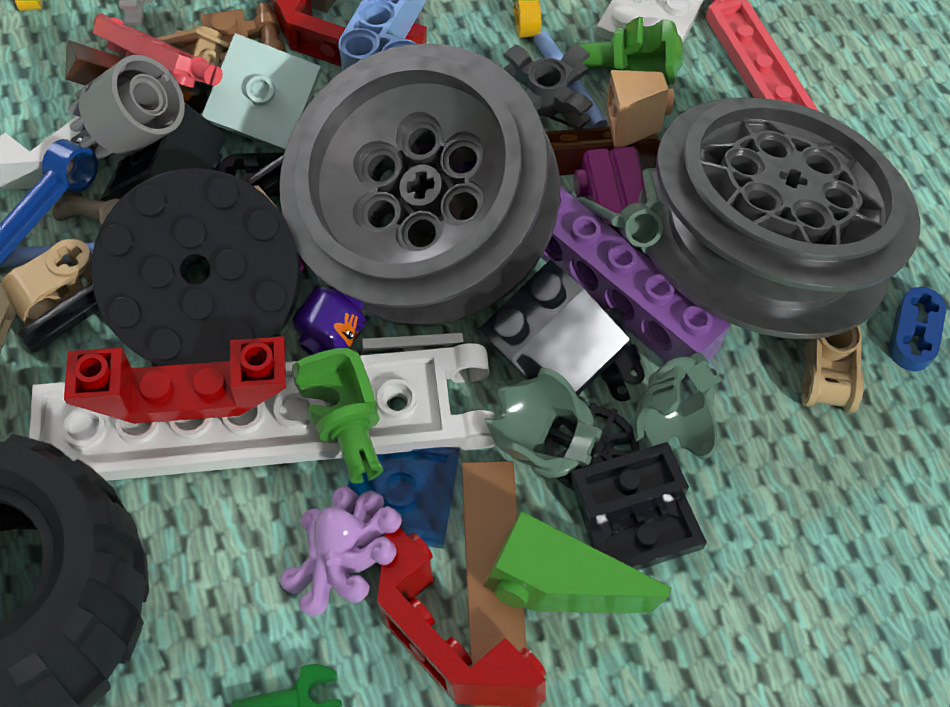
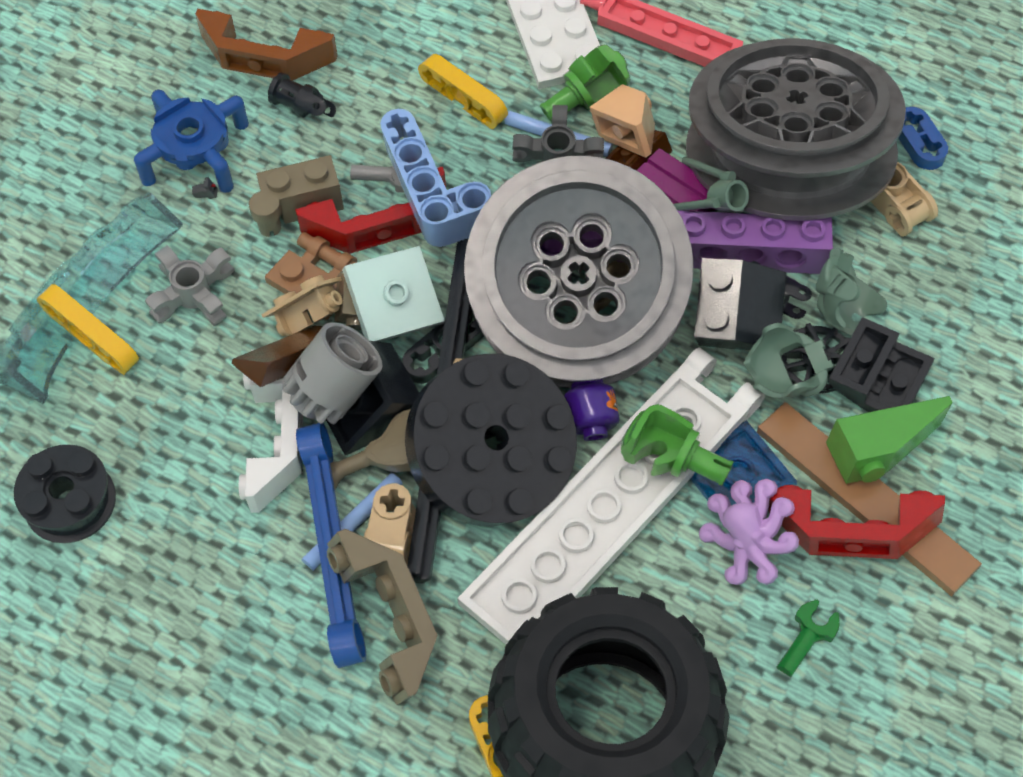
camera: 35 degrees left, 0 degrees up
(109, 386) = (567, 513): red slope -> none
(131, 41) = (273, 326): coral plate -> none
(411, 343) = (654, 382): light grey piece -> none

